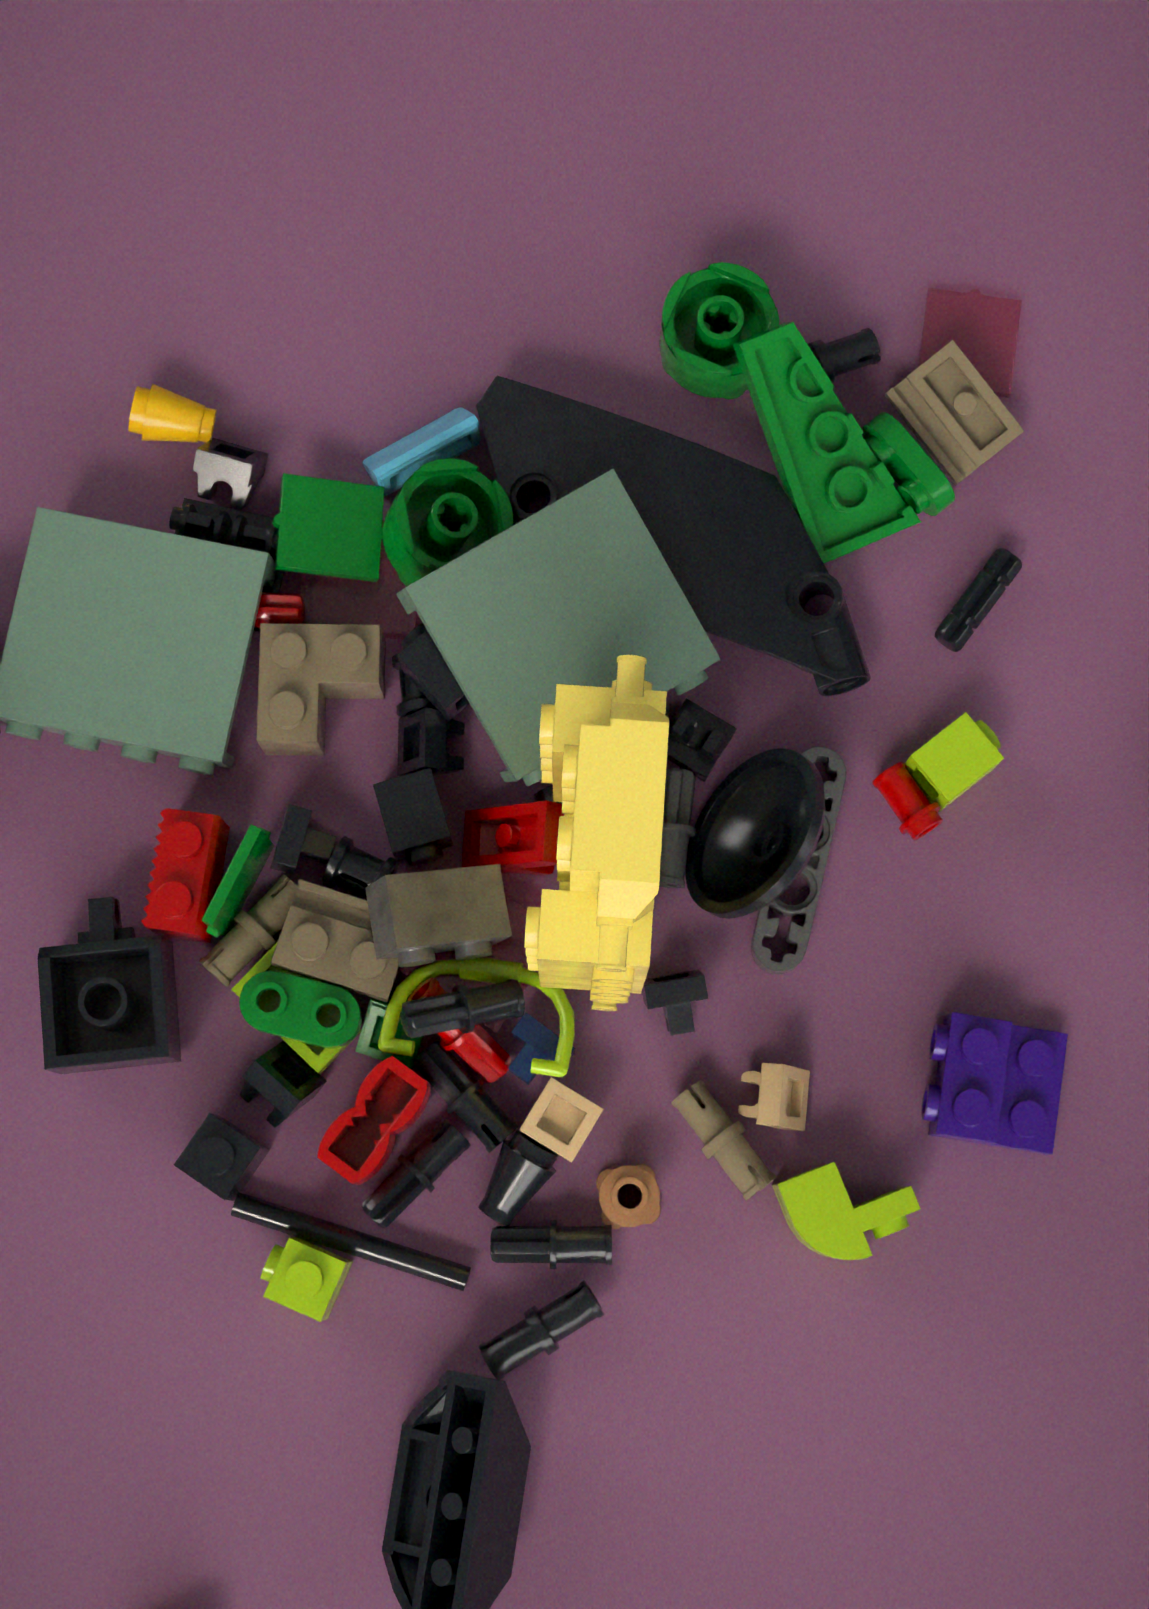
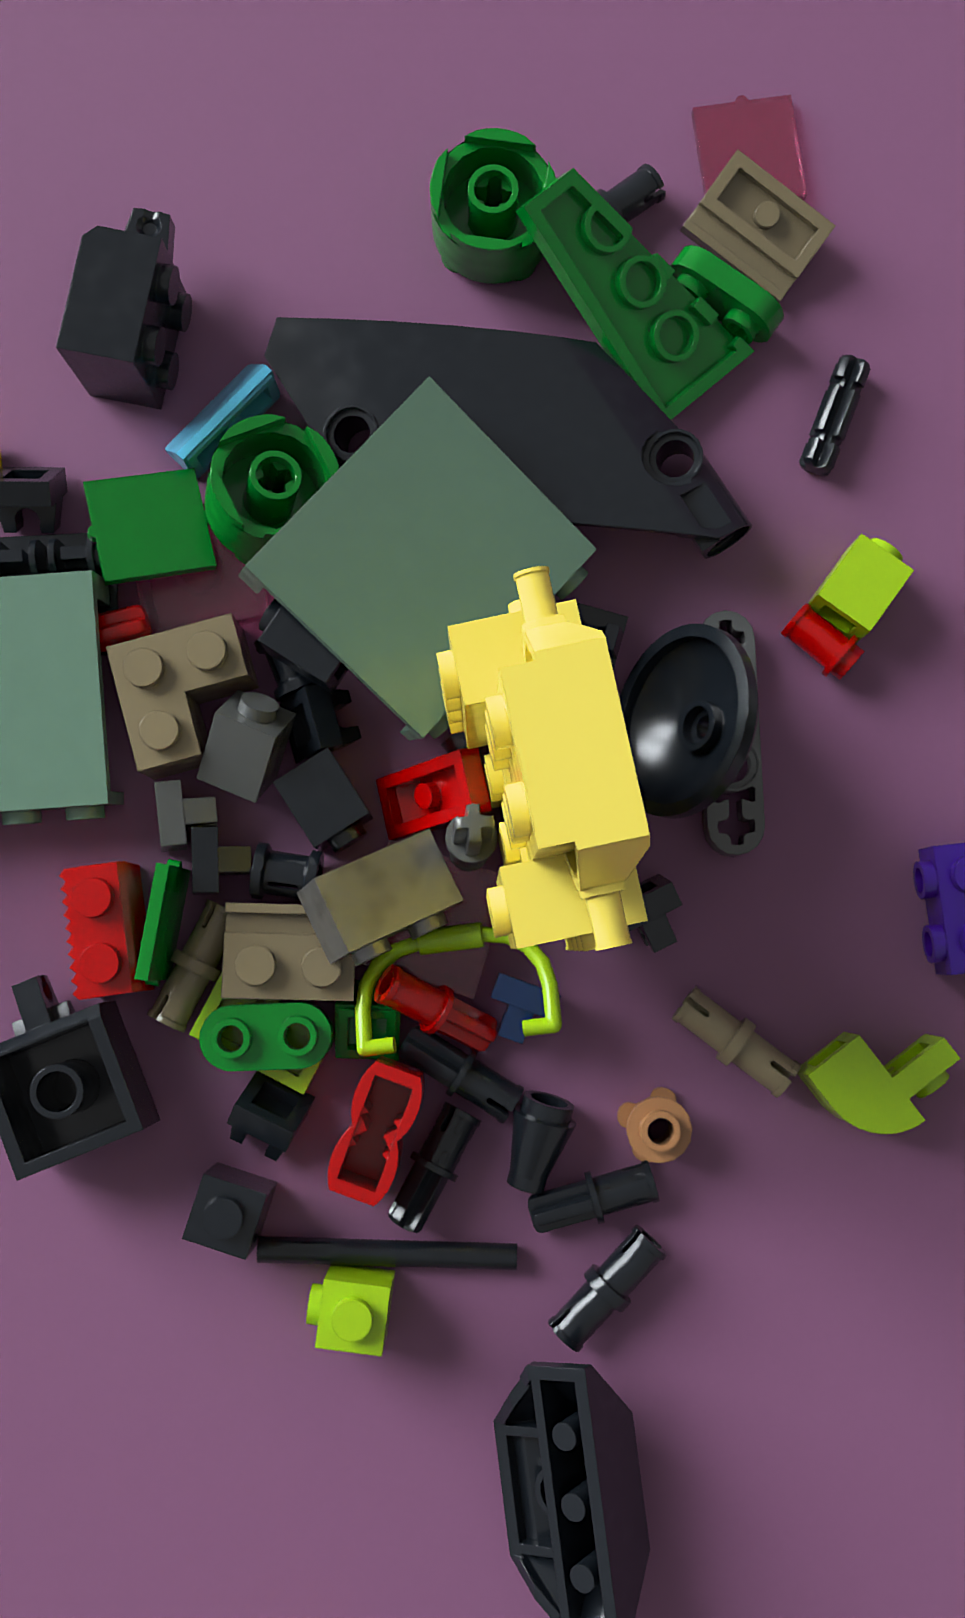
camera: 15 degrees left, 5 degrees up
(279, 791) = (180, 814): none -> dark grey tile
(359, 745) = (246, 744): none -> dark grey brick
(366, 335) = (126, 311): none -> black hinge
(462, 1008) = (434, 990): black axle -> none
(530, 879) = (471, 839): none -> dark grey axle
(561, 1119) = (567, 1072): tan tile -> none
(781, 1096) = (782, 982): tan tile -> none

